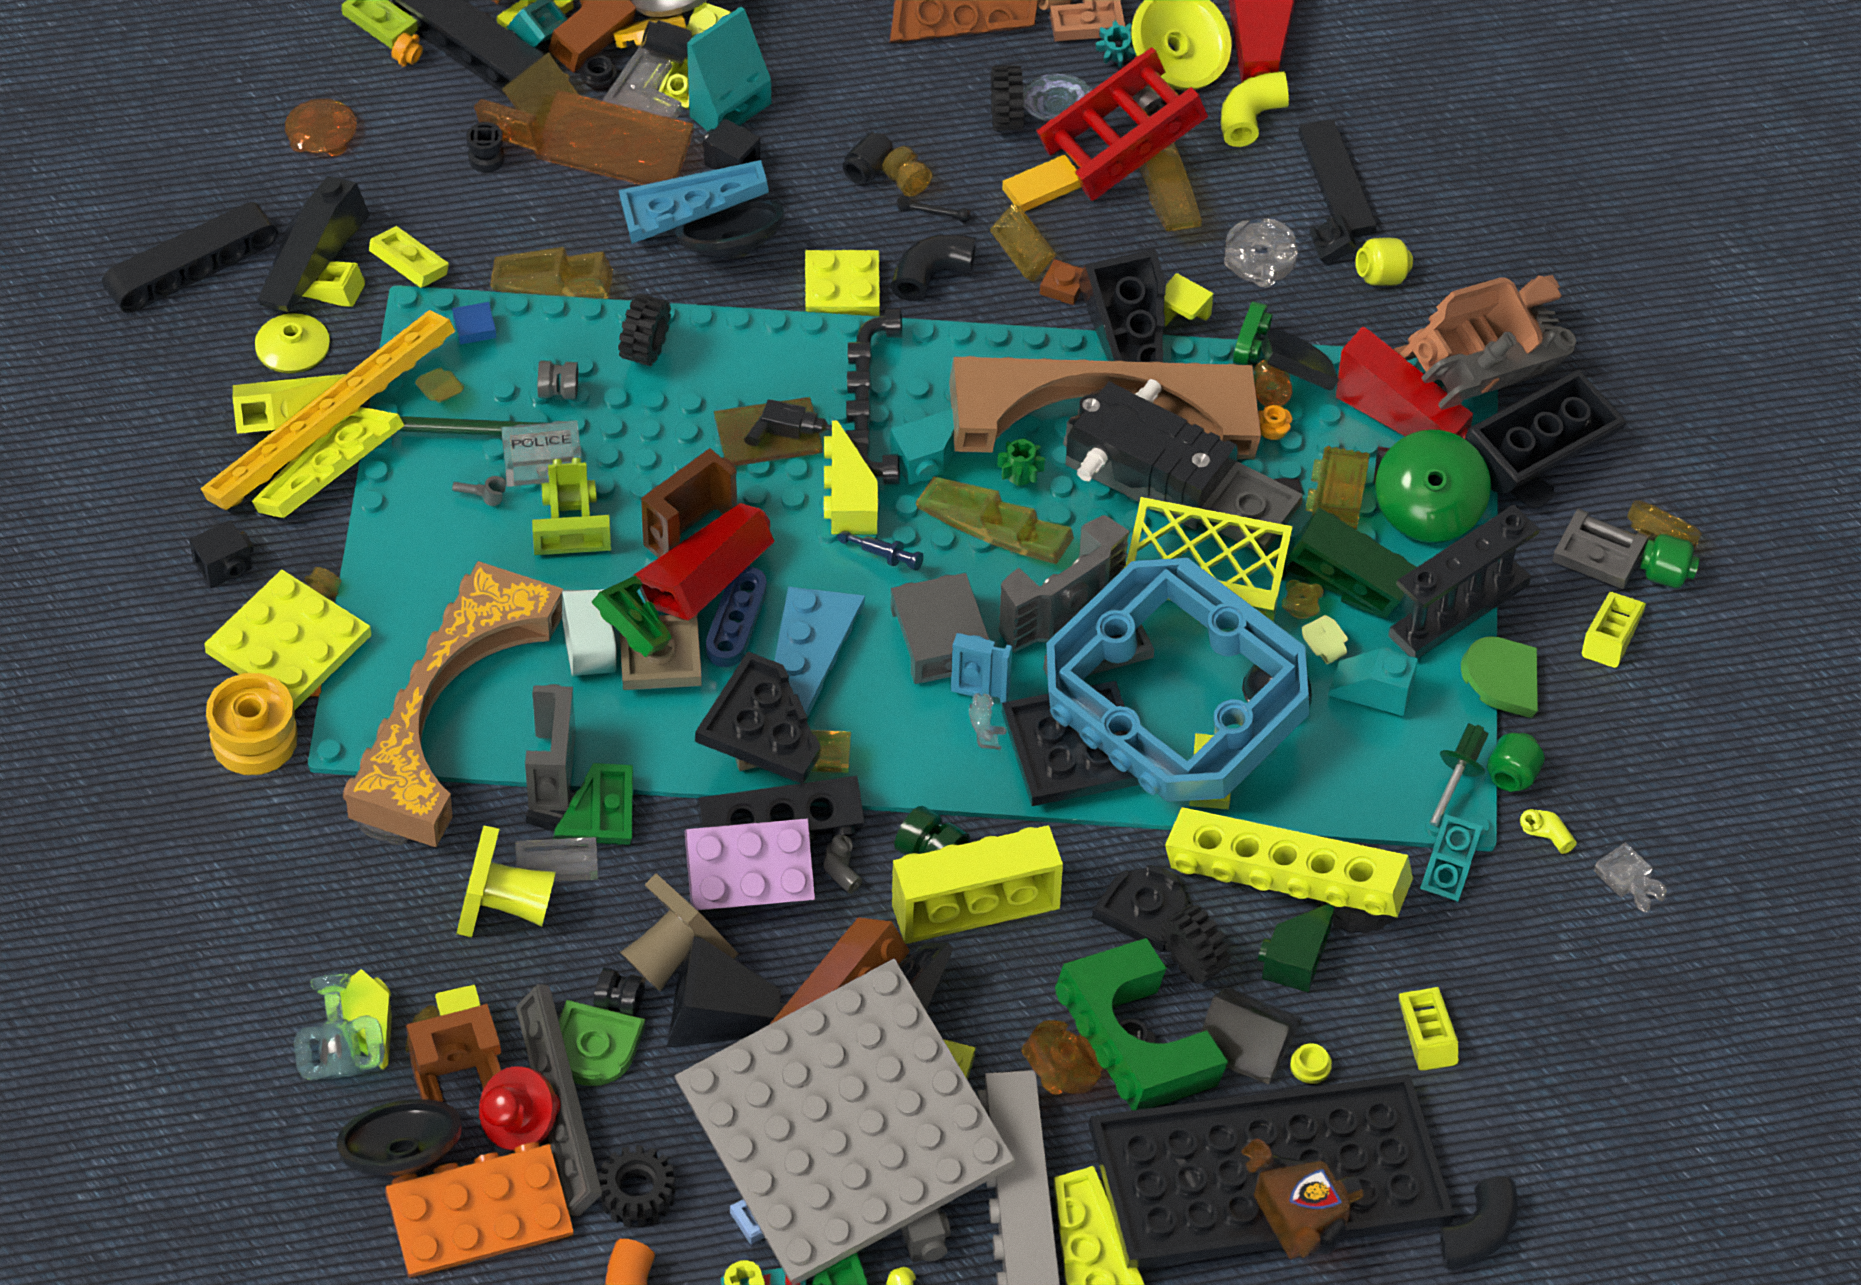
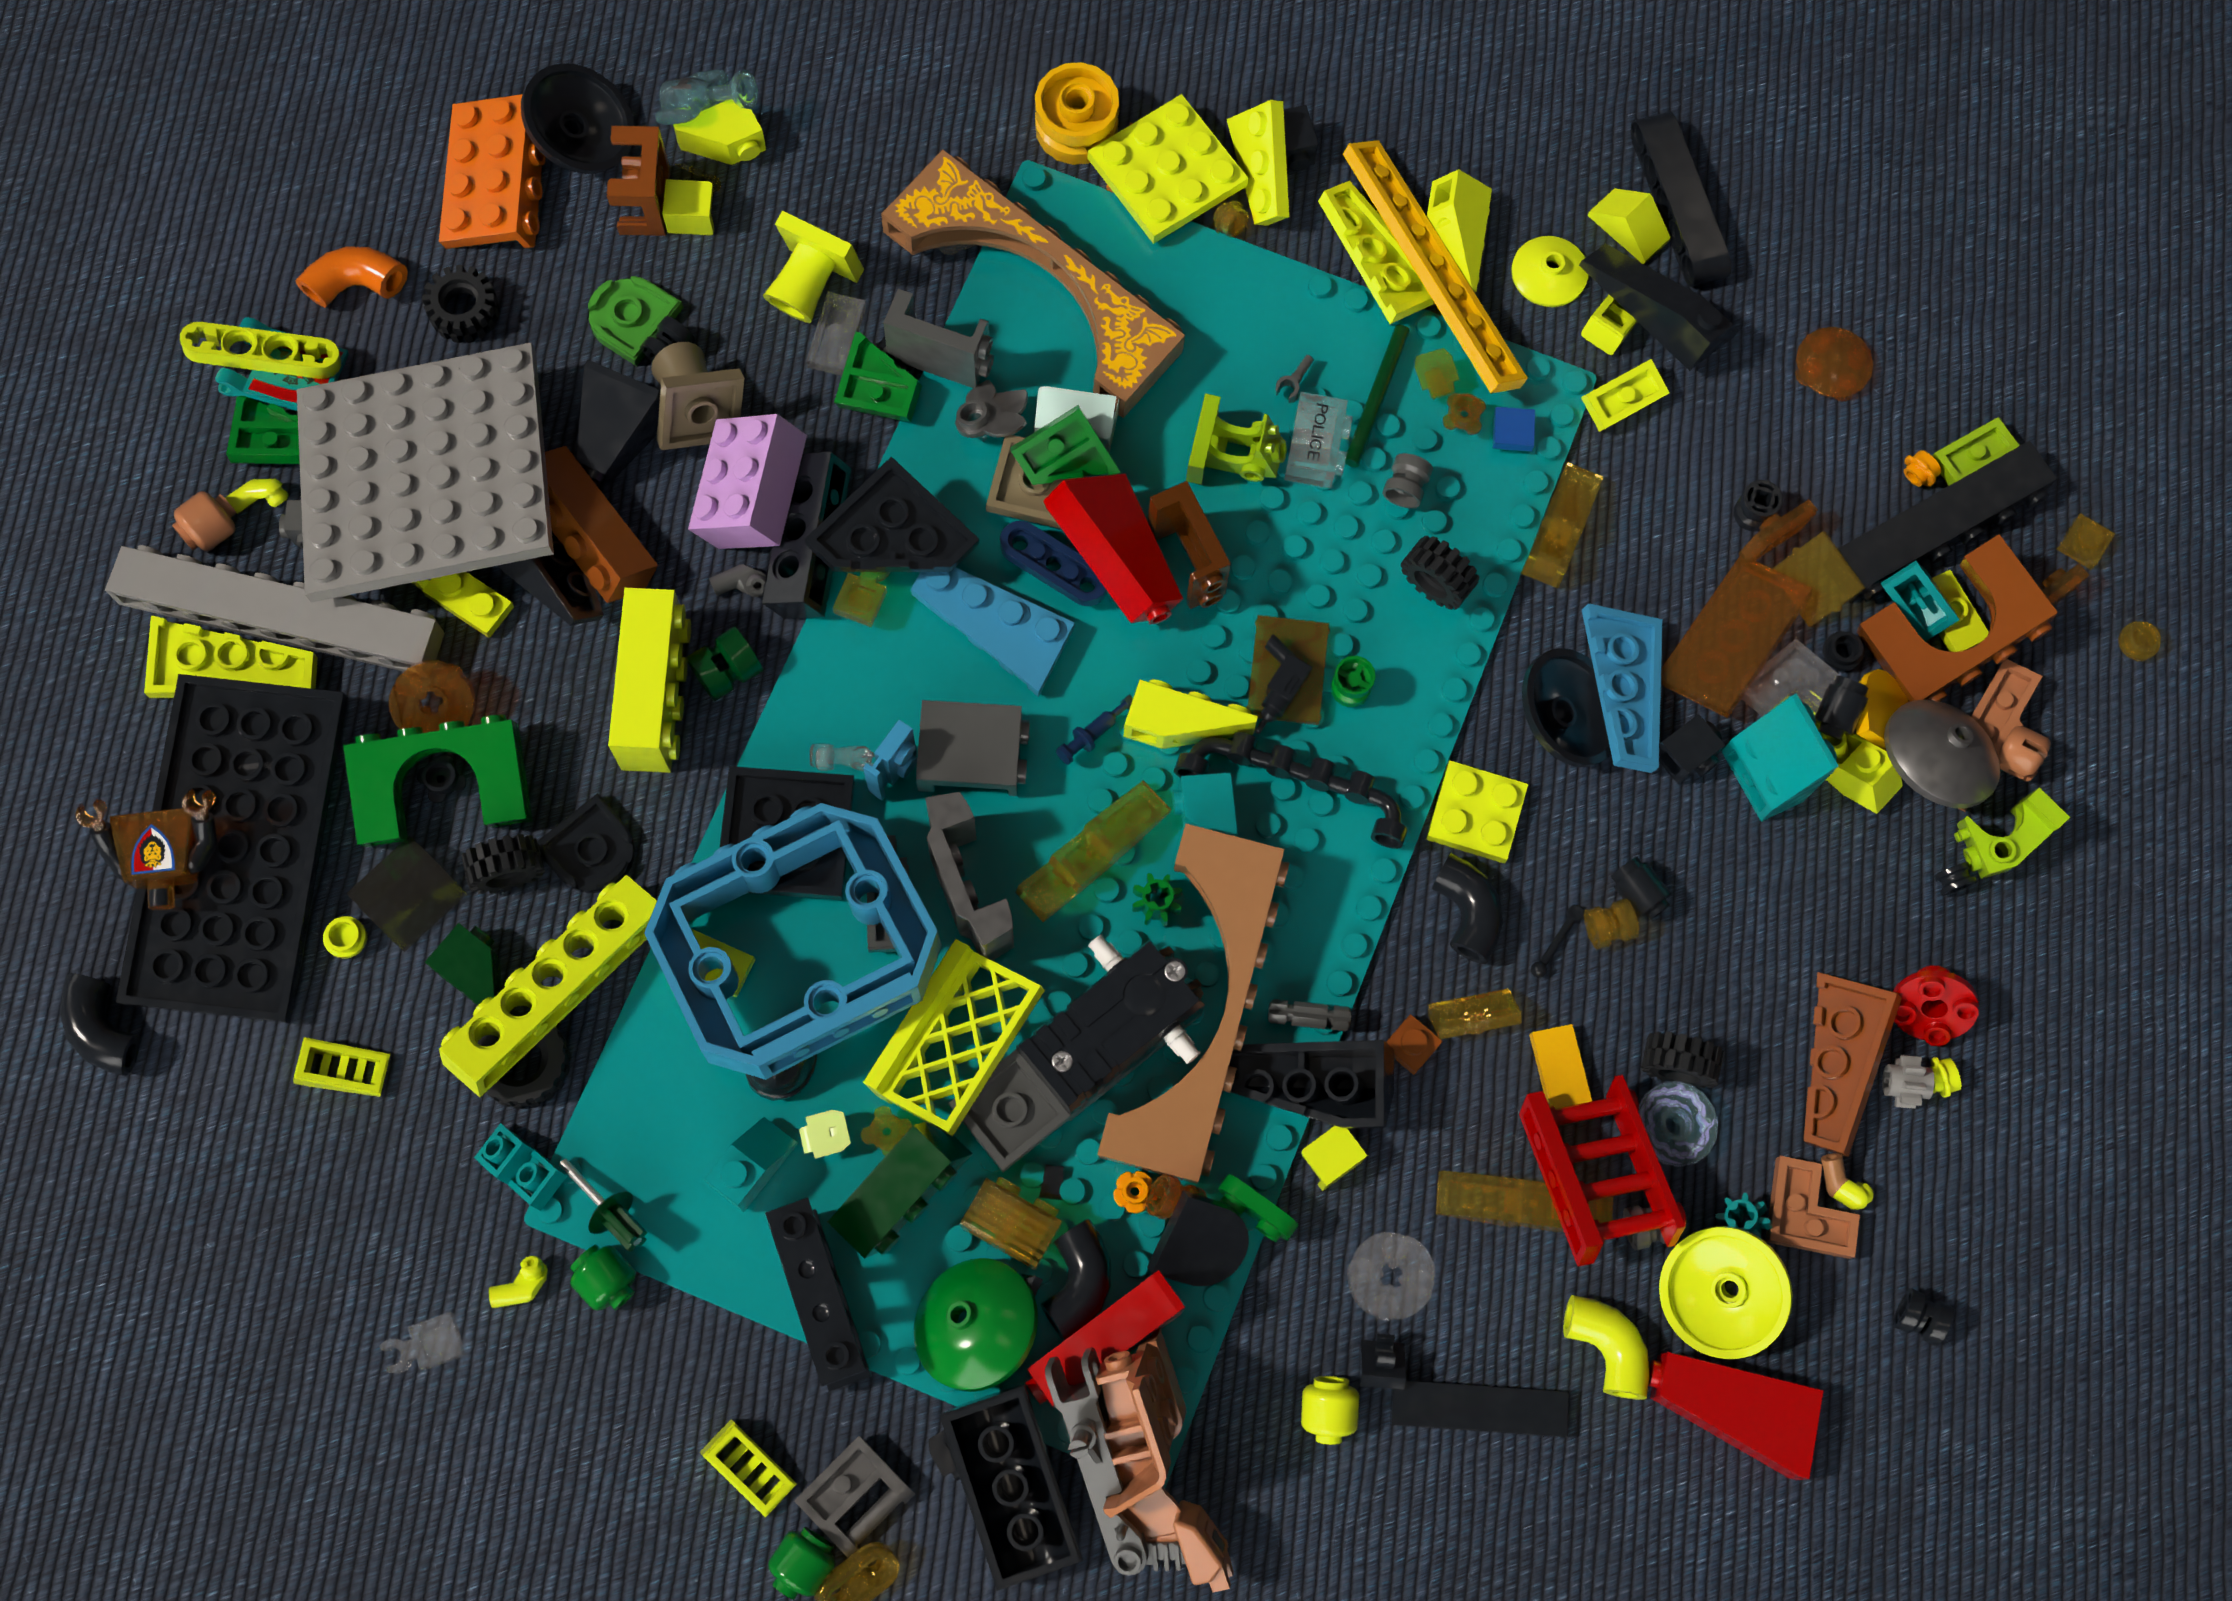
camera: 105 degrees right, 20 degrees up
(222, 292) = (1632, 222): none -> neon yellow slope
(246, 563) = (1261, 155): none -> neon yellow wing
(471, 351) = (1468, 403): none -> clear orange plate
(518, 1107) = (570, 217): red plate -> none
(568, 1135) = (574, 262): dark grey tile -> none
(598, 699) = (991, 412): none -> flat silver plate
(766, 375) = (1356, 673): none -> green wheel
(1071, 336) = (1309, 1015): none -> dark grey axle
(1361, 428) = (1086, 1283): none -> black cylinder
(1503, 674) = (722, 1312): bright green tile -> none

